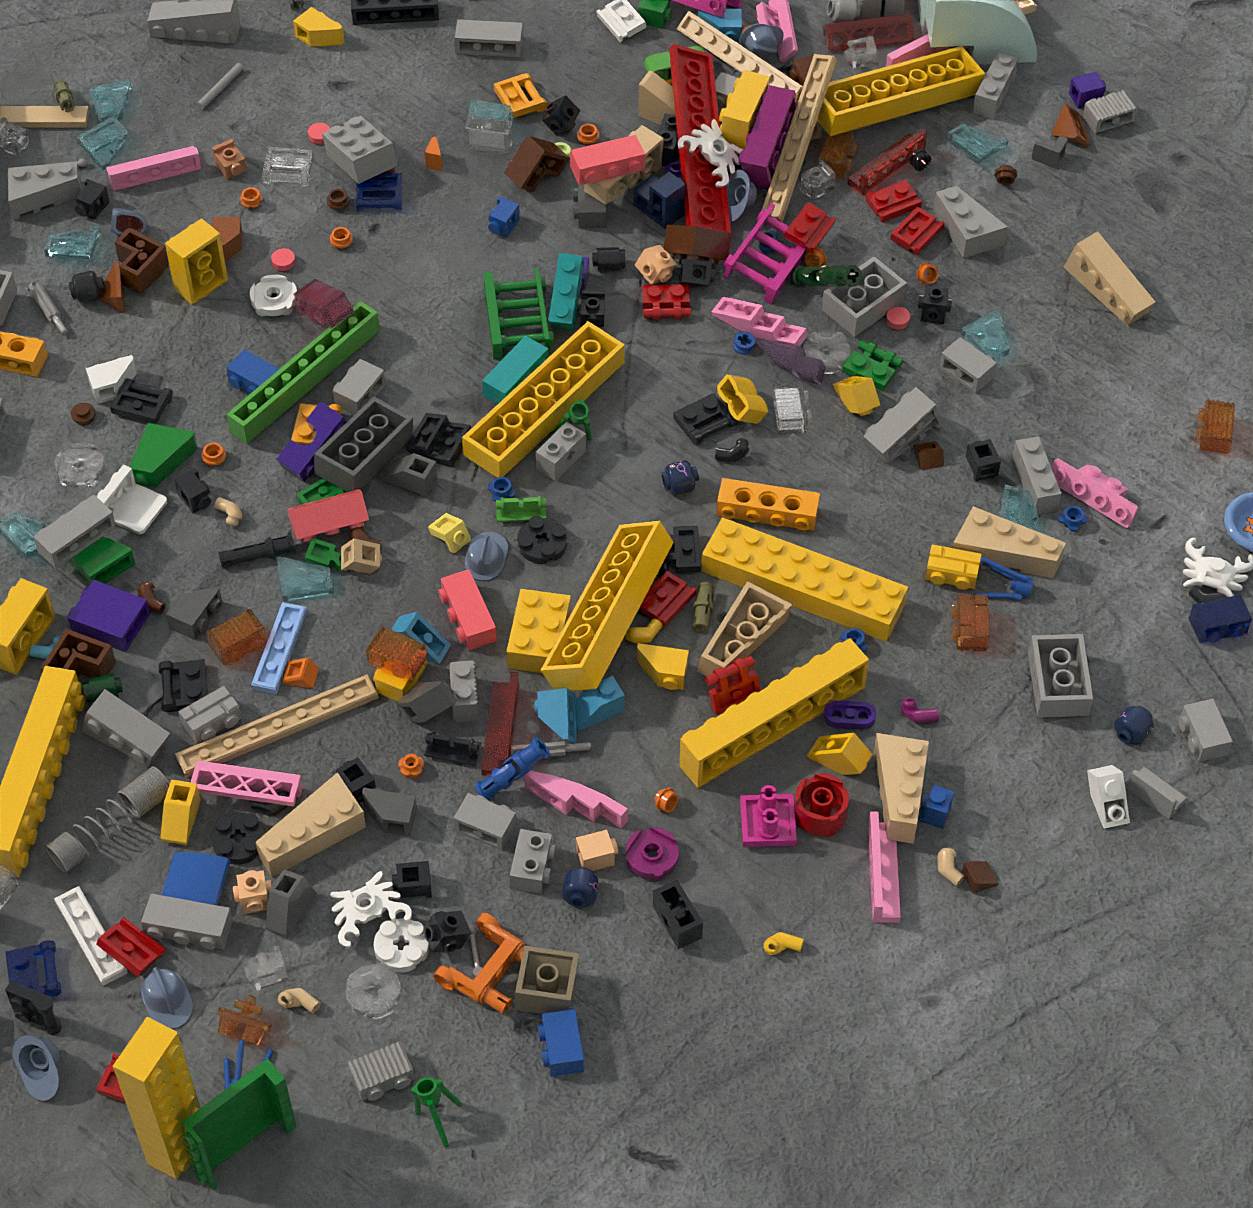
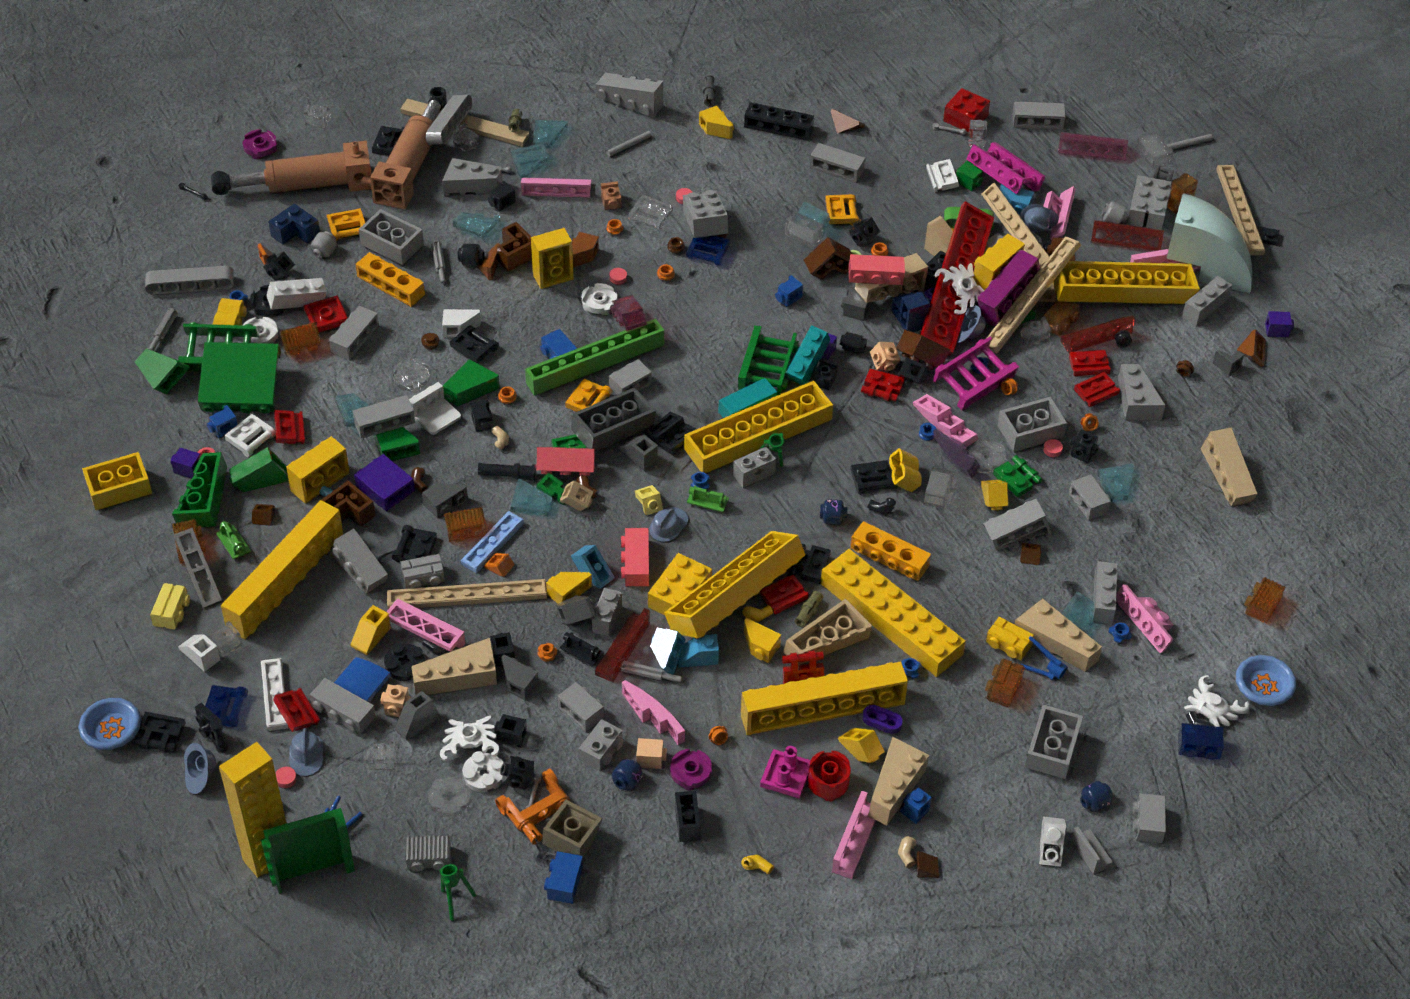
camera: 20 degrees right, 5 degrees down
(96, 686) = (361, 527): dark green brick -> none
(124, 219) = (521, 217): rock -> none
(138, 797) = (348, 610): light grey piece -> none
(230, 1020) = (355, 793): clear orange hips -> none
(298, 997) = (394, 783): tan arm -> none
(300, 458) = (562, 414): dark purple arch -> none
(396, 653) = (568, 569): clear orange brick -> none
(433, 155) = (758, 233): orange slope -> none
(504, 776) = (614, 675): blue piece -> none
(542, 528) = (717, 517): black plate -> none
(809, 227) = (1011, 362): red plate -> none
(826, 276) = (1006, 400): dark green piece -> none
(864, 46) = (1113, 248): clear brick -> none
(917, 715) = (932, 734): magenta arm -> none
(975, 142) = (1173, 338): clear light blue wing -> none
(983, 459) = (1069, 569): black brick -> none
(1109, 111) = (1289, 345): light grey brick -> none

